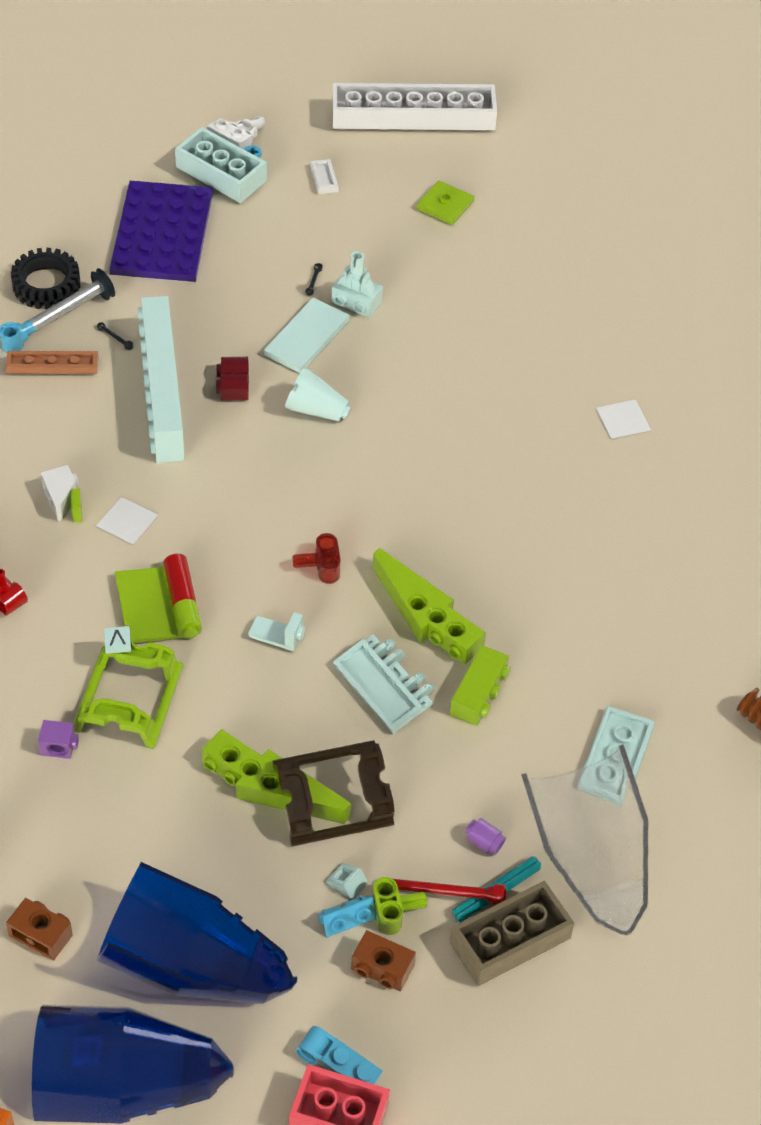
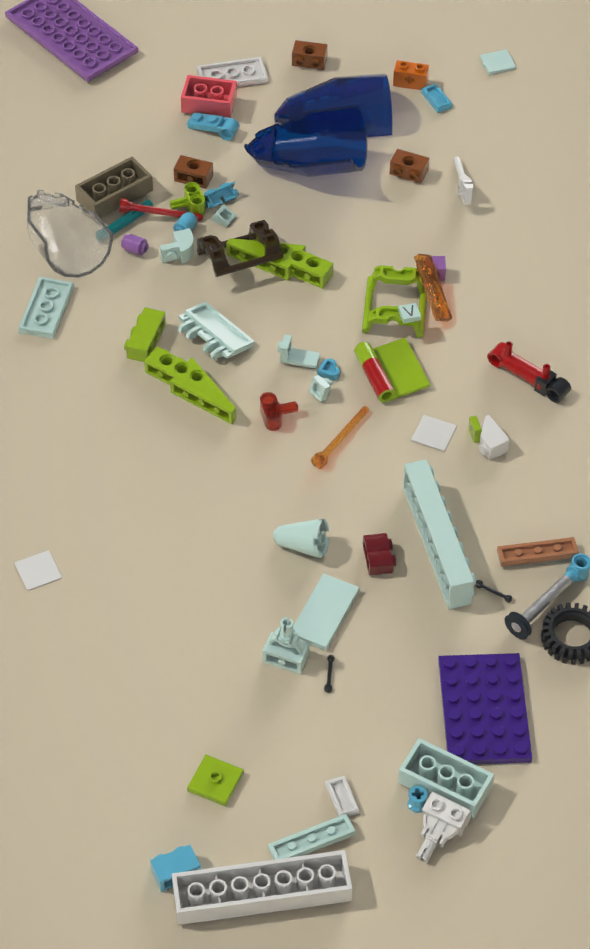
camera: 175 degrees right, 0 degrees up
(71, 692) = (433, 287): none -> clear orange plate
(240, 614) = (329, 370): none -> medium azure tile
(255, 582) = (320, 388): none -> light aqua tile
(276, 495) = (320, 459): none -> clear orange piece
(360, 143) = (312, 838): none -> light aqua plate
(406, 860) = (186, 221): none -> medium azure brick
(415, 819) = (181, 248): none -> light aqua brick
(491, 135) = (179, 860): none -> medium azure brick

